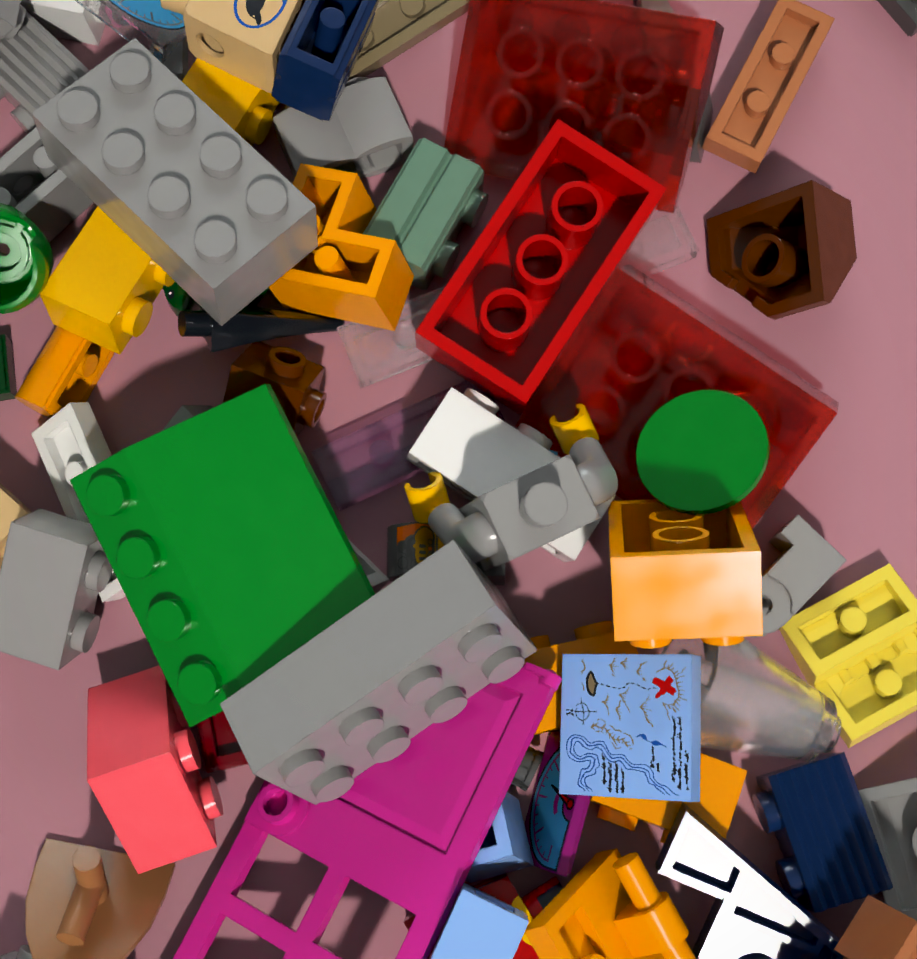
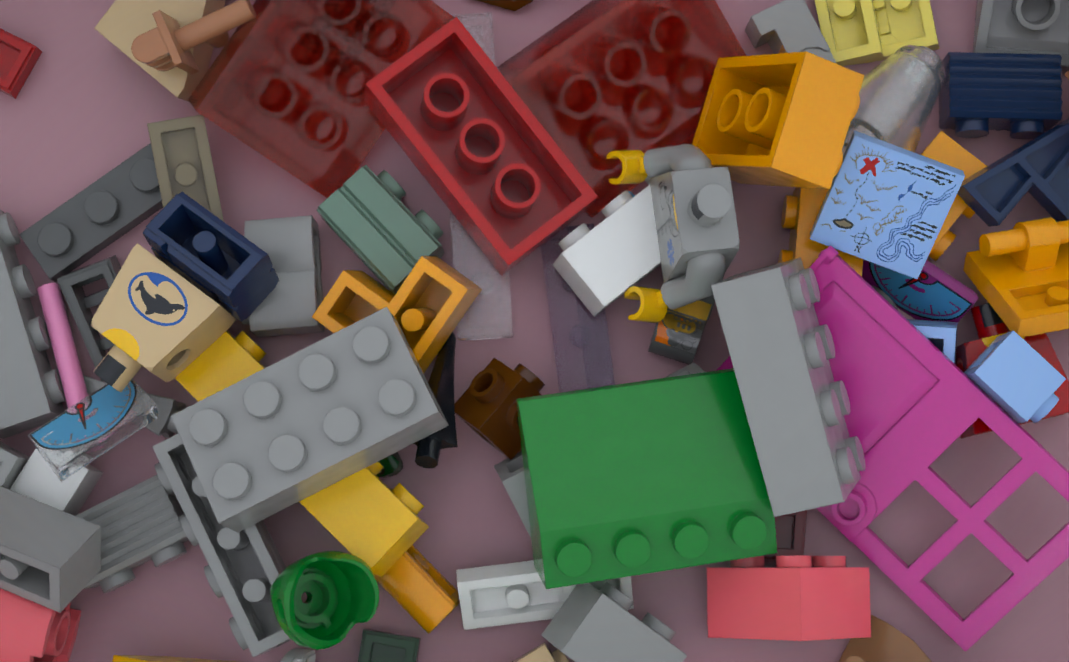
camera: 70 degrees left, 5 degrees up
(702, 452) = (682, 71): green piece -> none

